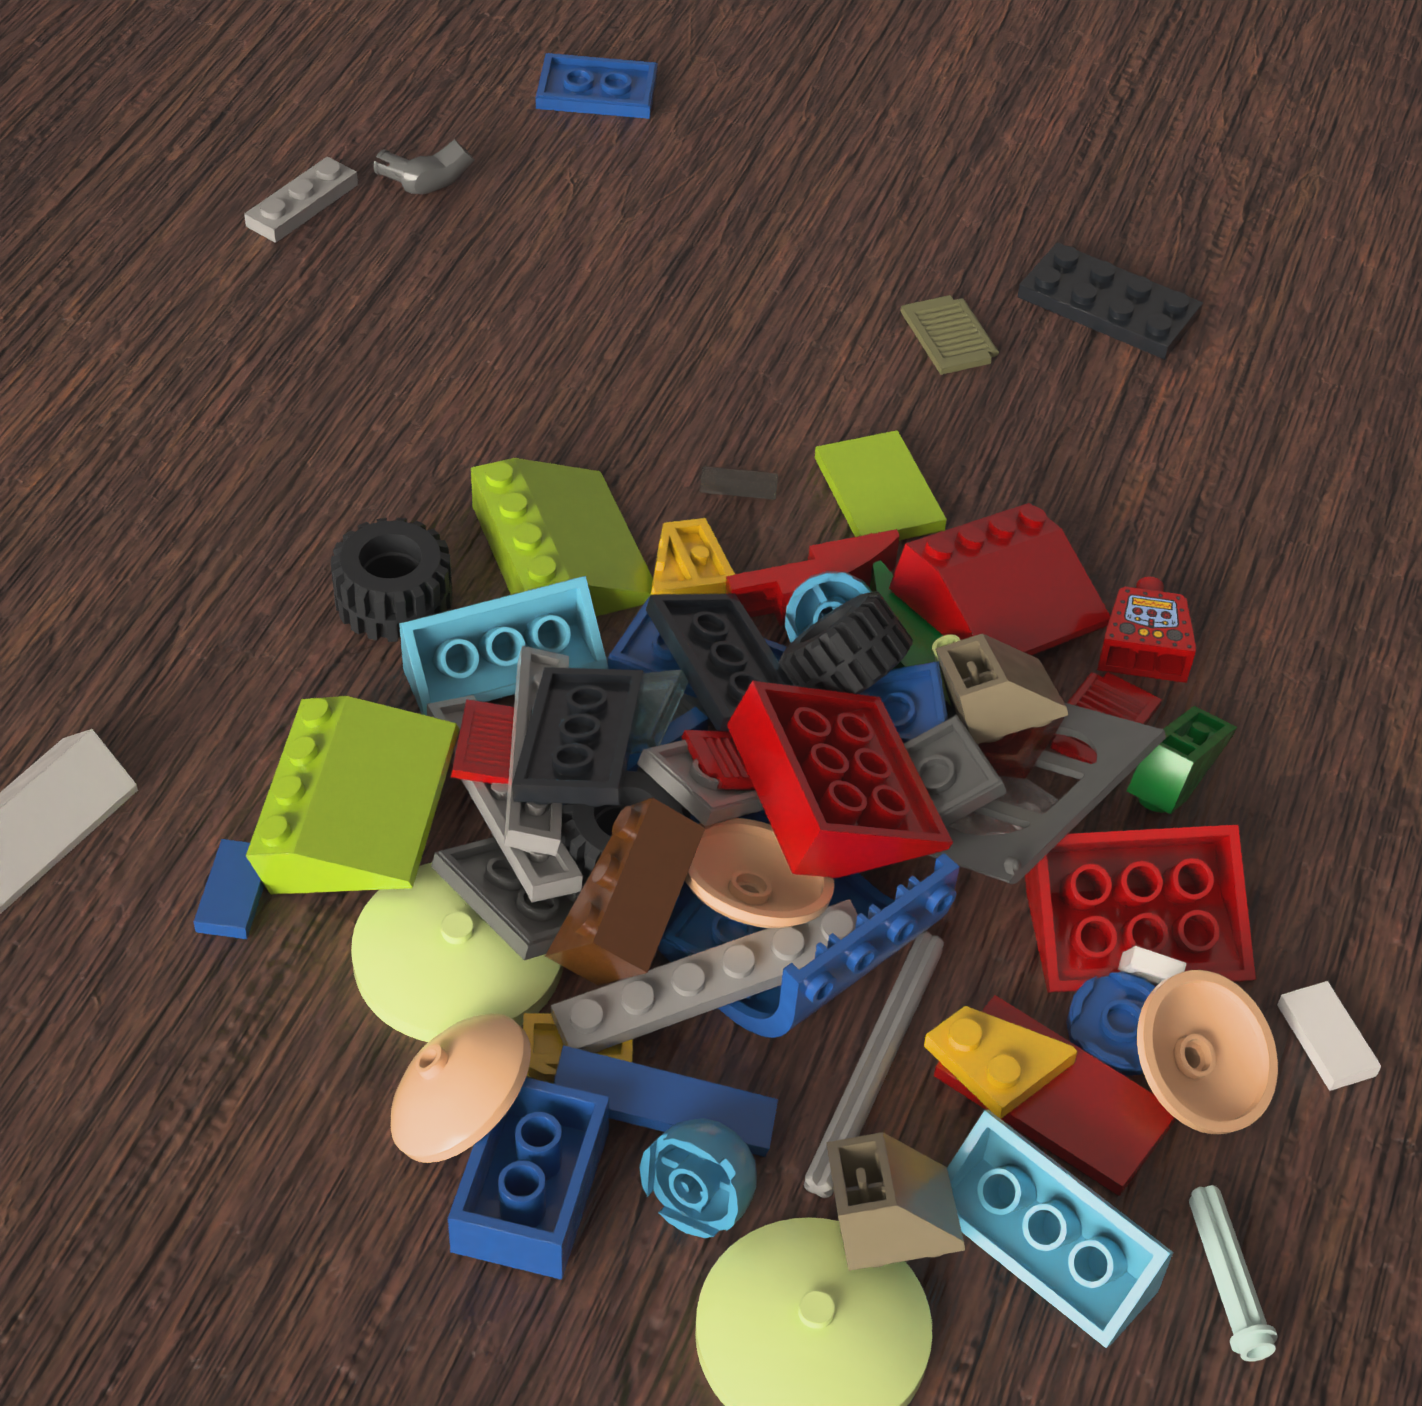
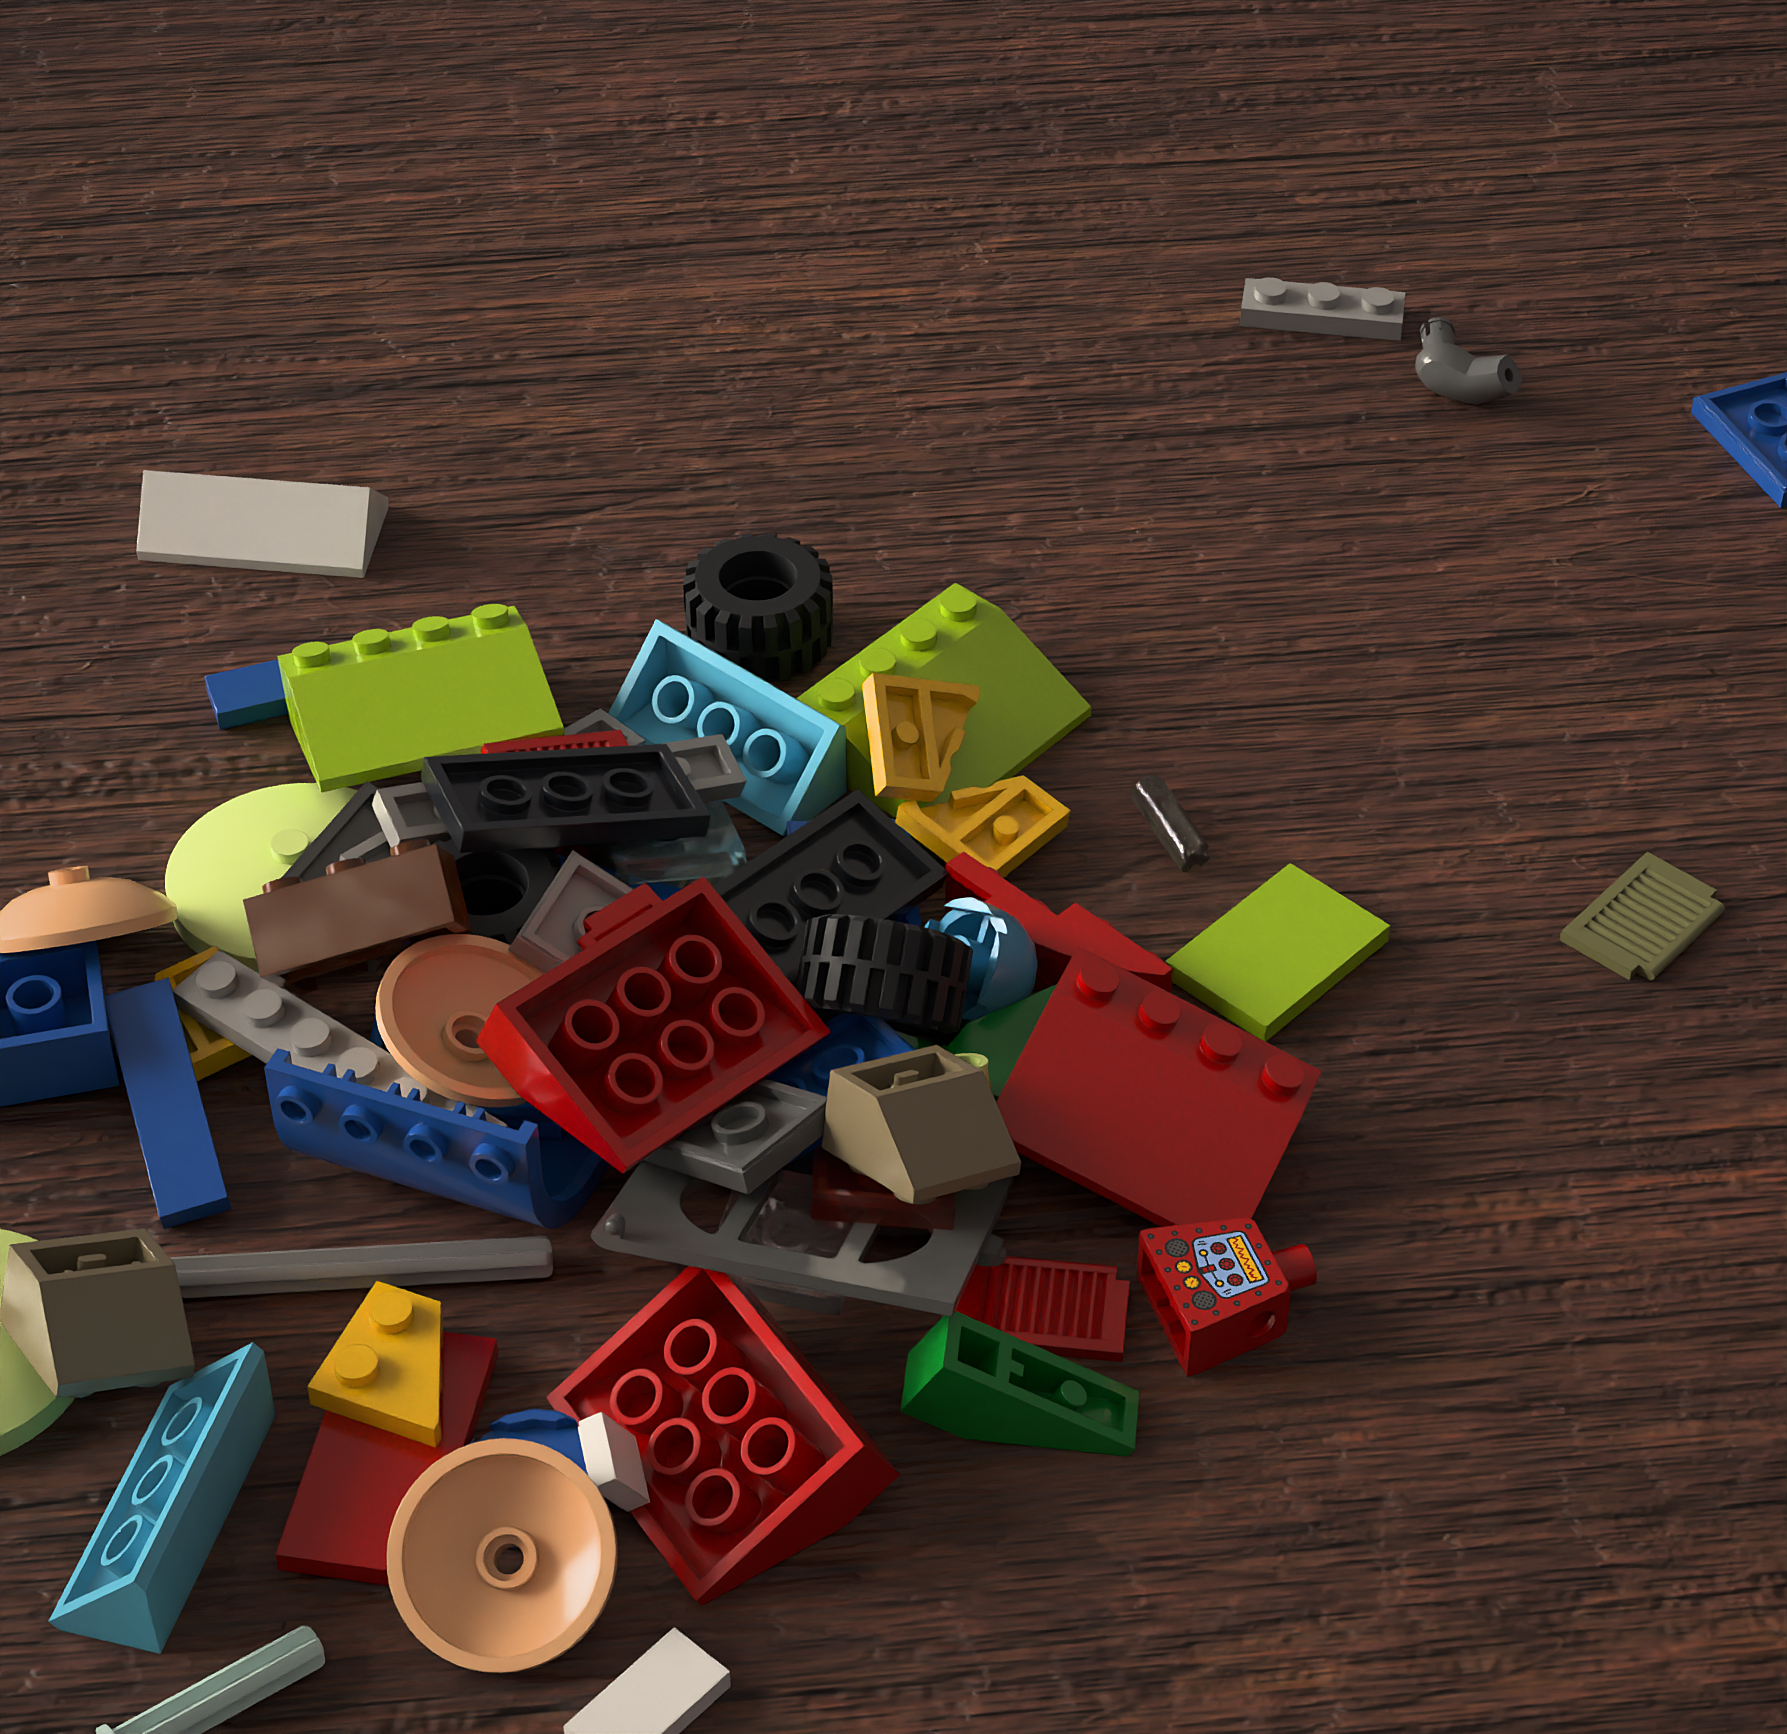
camera: 65 degrees right, 5 degrees down
(607, 552) = (914, 732): none -> yellow wing
(700, 1176) = (83, 1162): dark azure cylinder -> none

